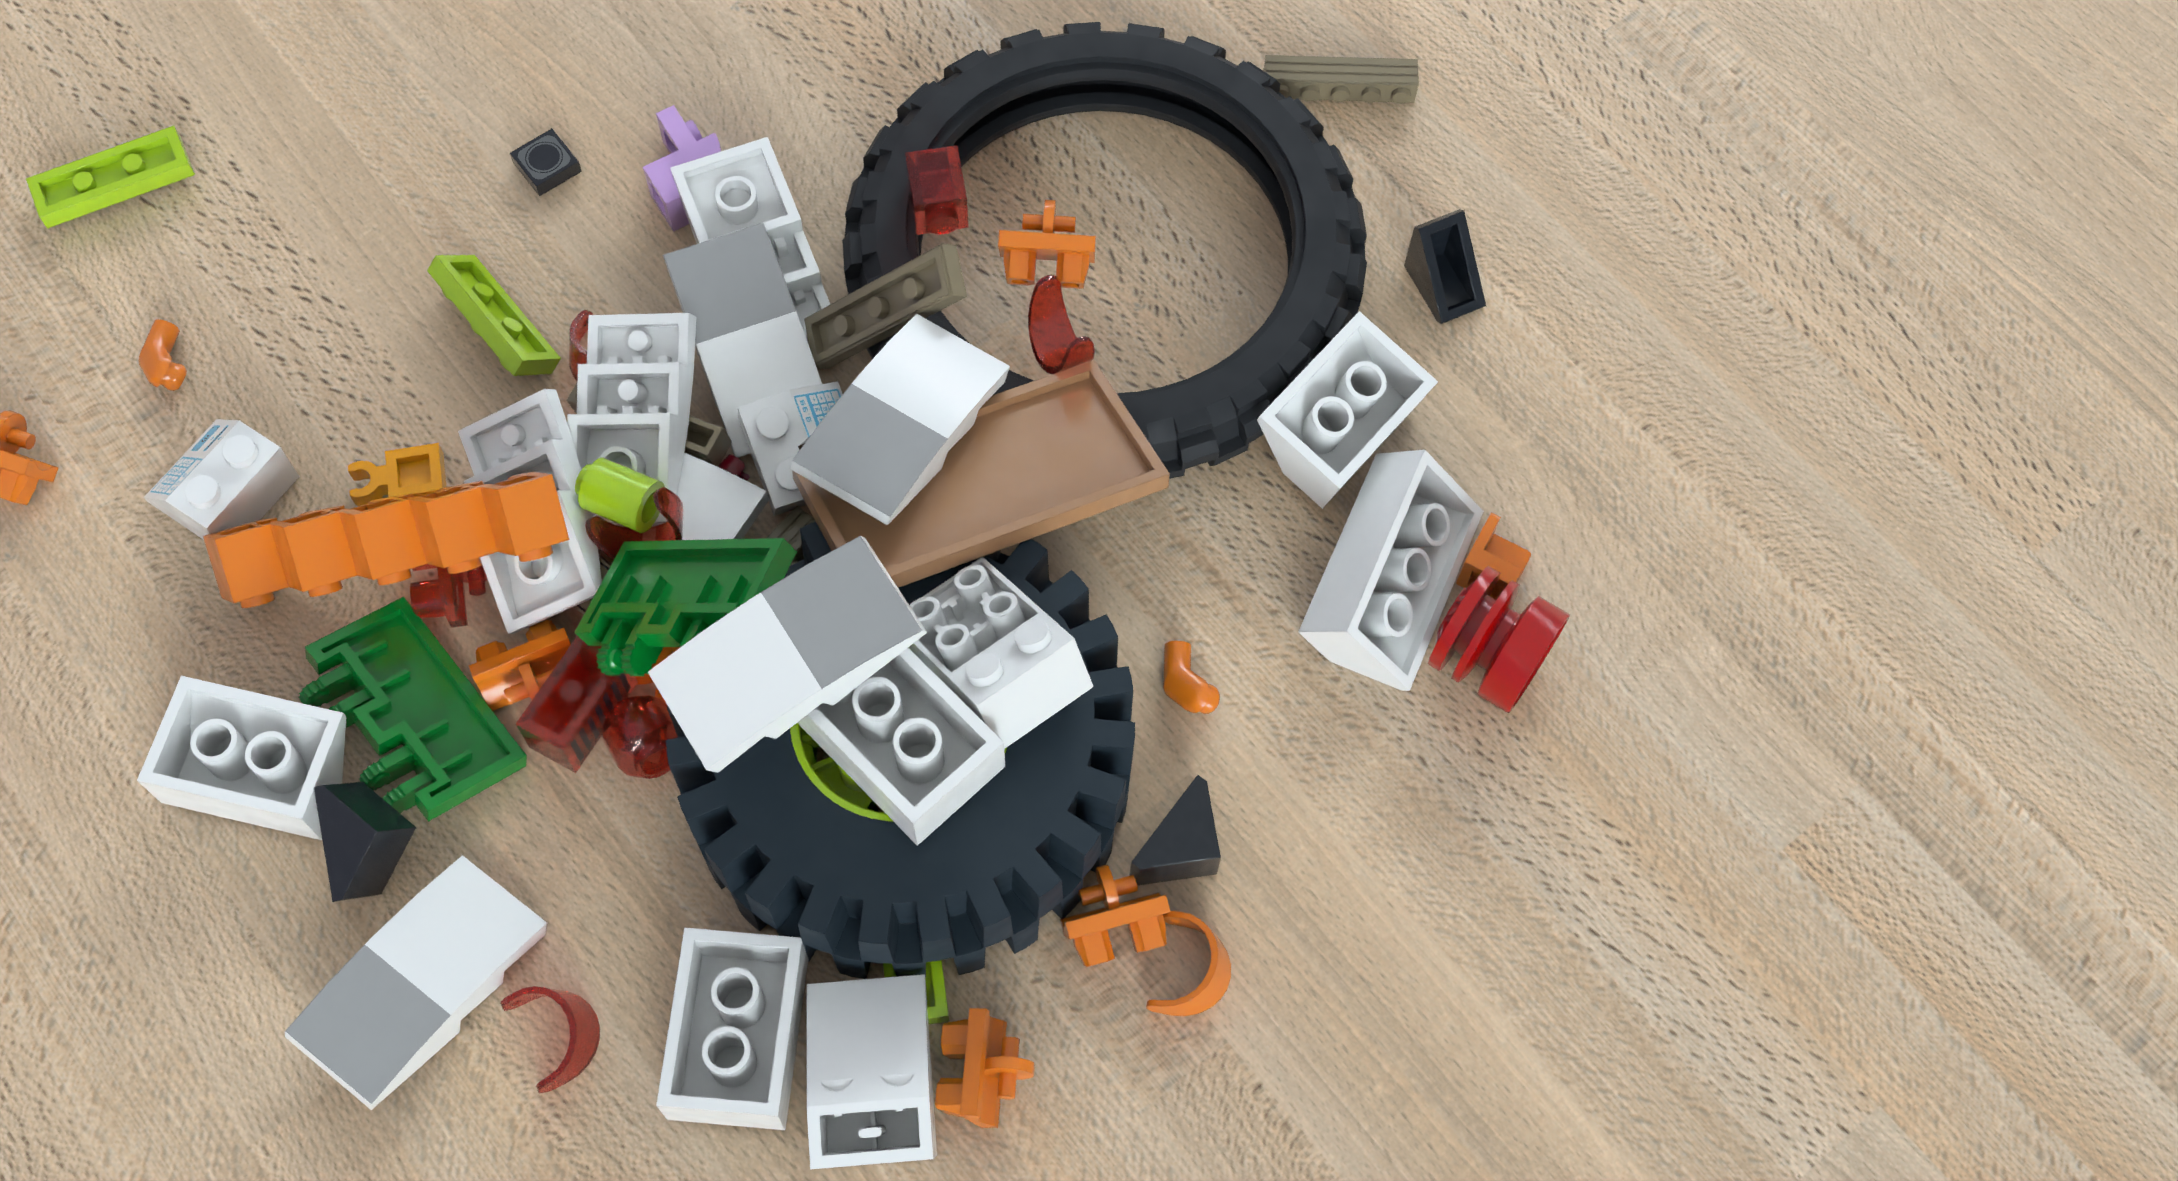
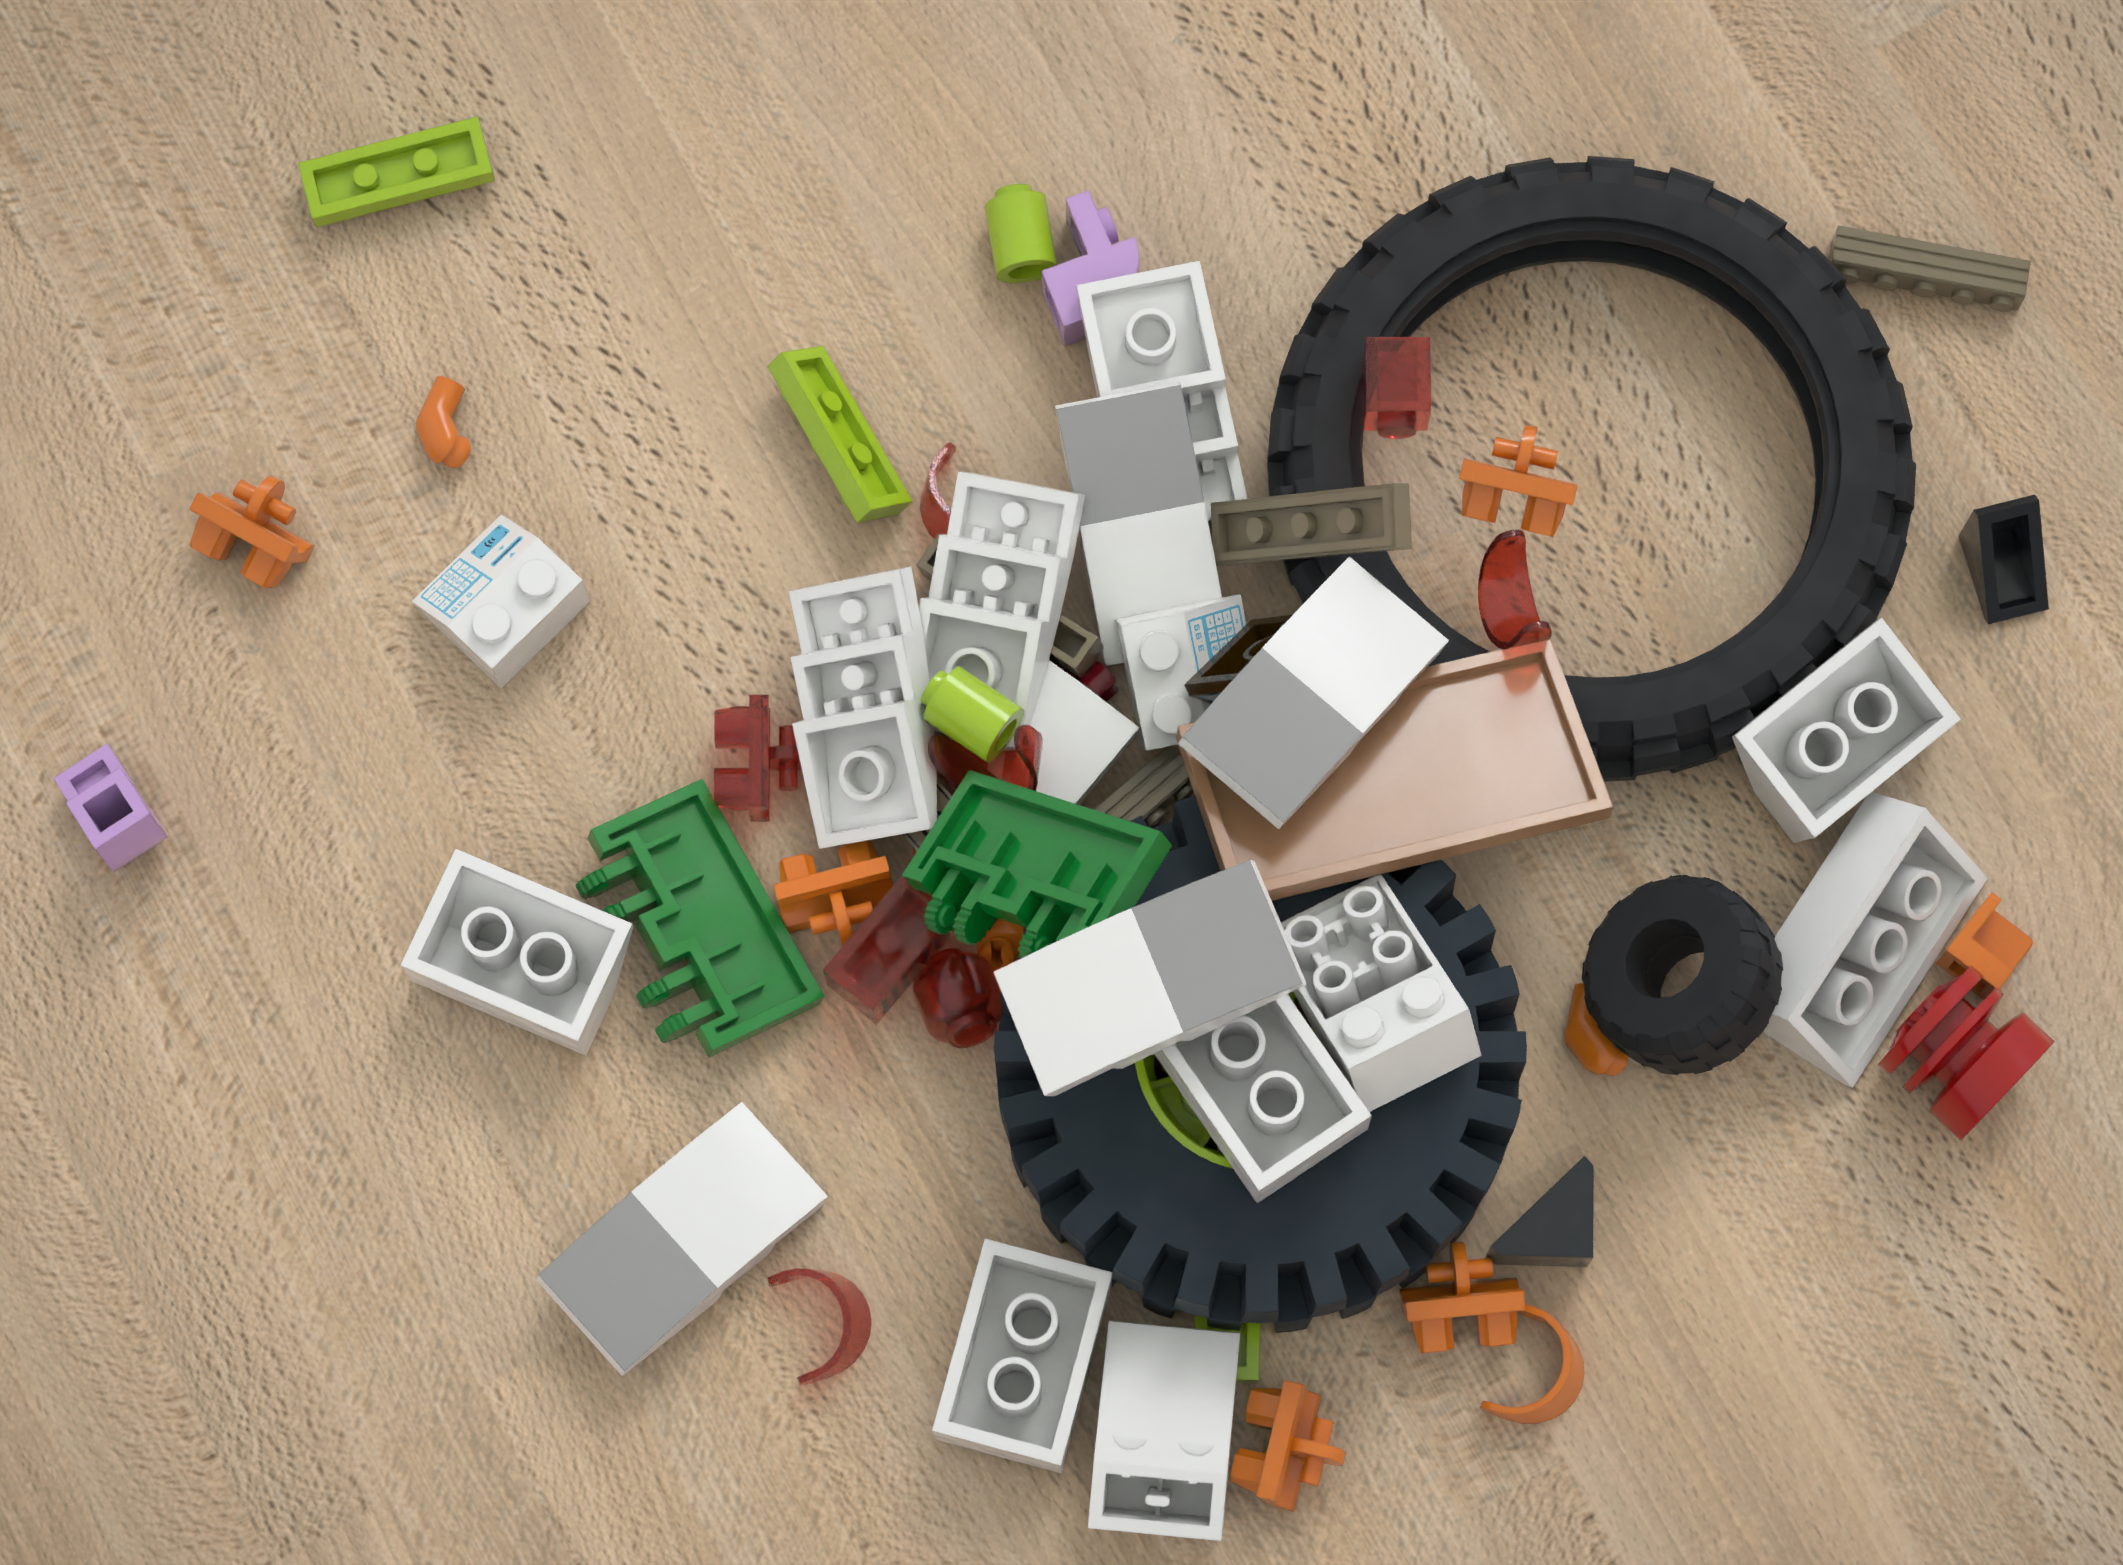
camera: 15 degrees right, 10 degrees up
(359, 838) = (635, 1066): black slope -> none
(388, 538) = (700, 722): orange brick -> none
(406, 471) = (723, 628): light orange plate -> none
(545, 162) = (920, 230): black tile -> none
(623, 150) = (1020, 234): none -> lime brick
(1279, 640) = (1720, 1008): none -> black tyre

